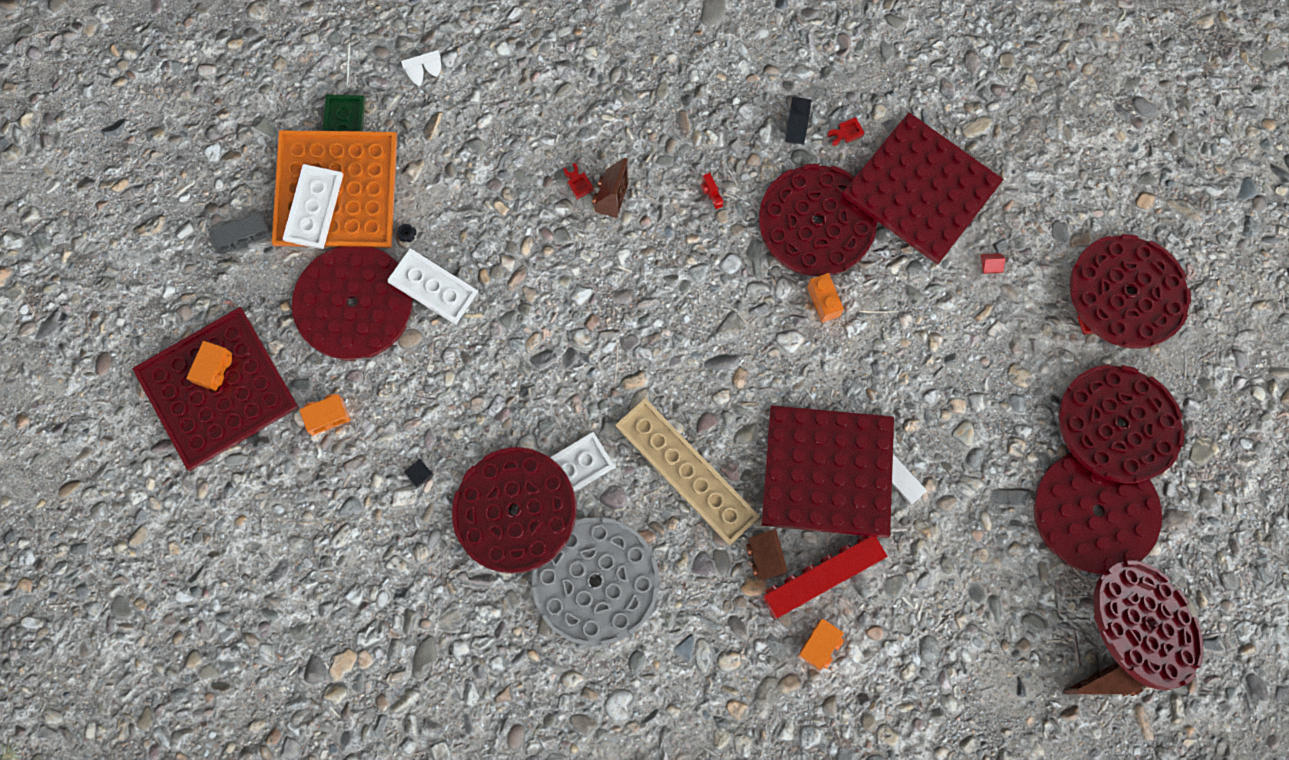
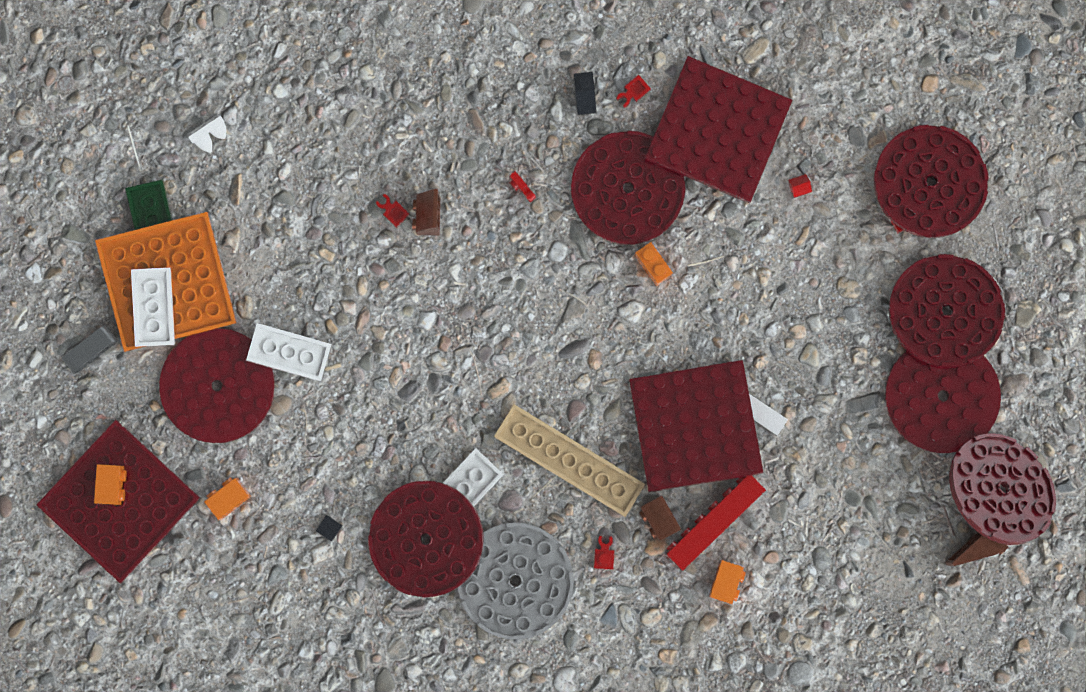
camera: 15 degrees left, 10 degrees up
(406, 228) = (241, 305): black plate -> none
(696, 582) = (604, 557): none -> red plate

